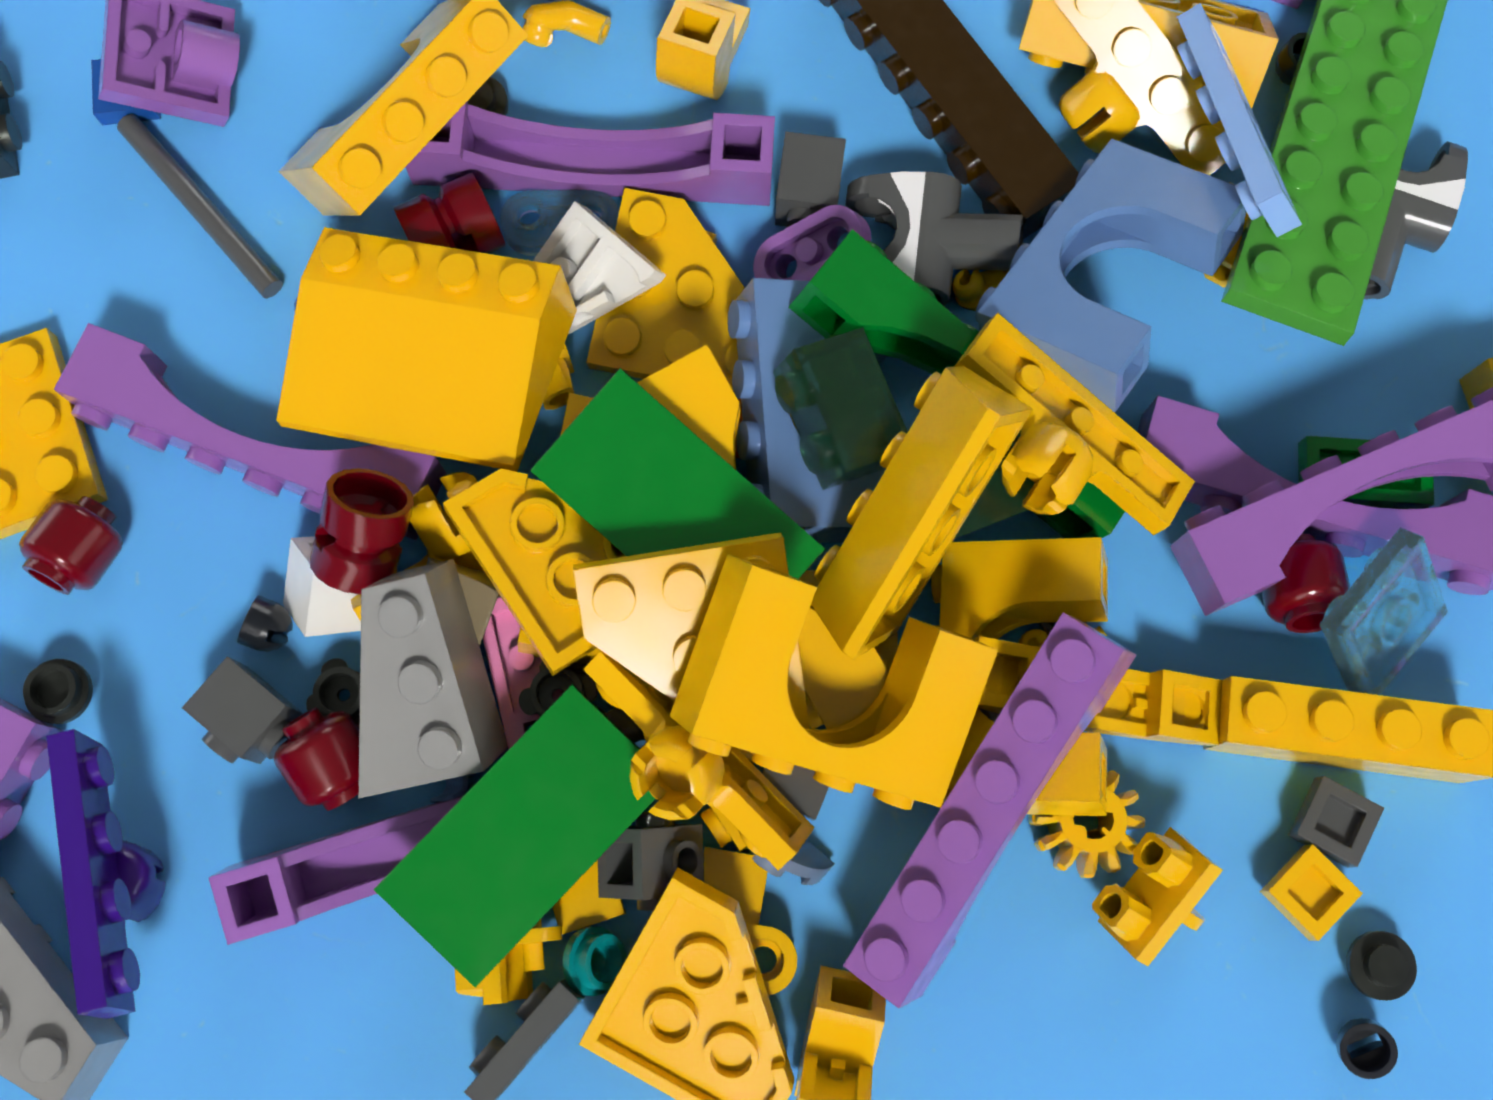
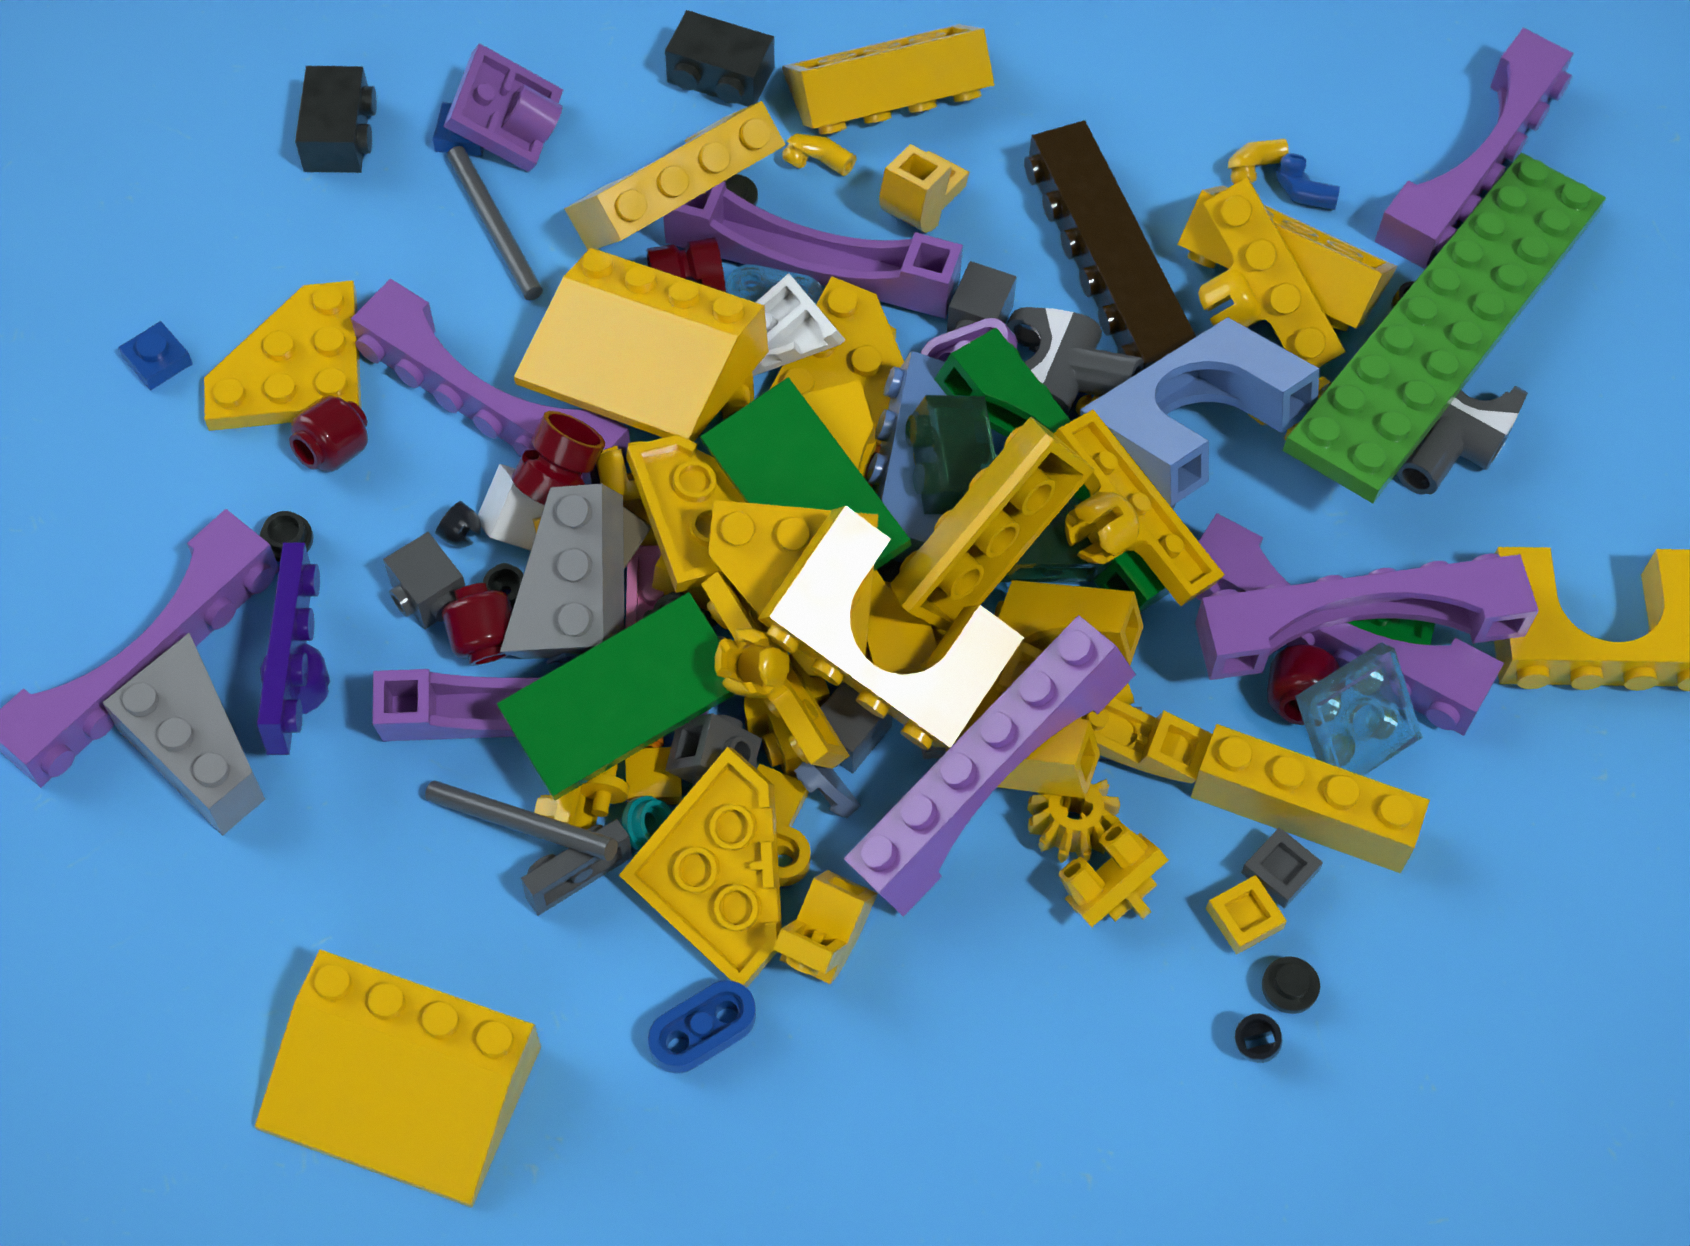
camera: 15 degrees right, 15 degrees down
(446, 1010) = (522, 820): none -> dark grey bar
(1242, 142) = (1323, 317): light blue plate -> none

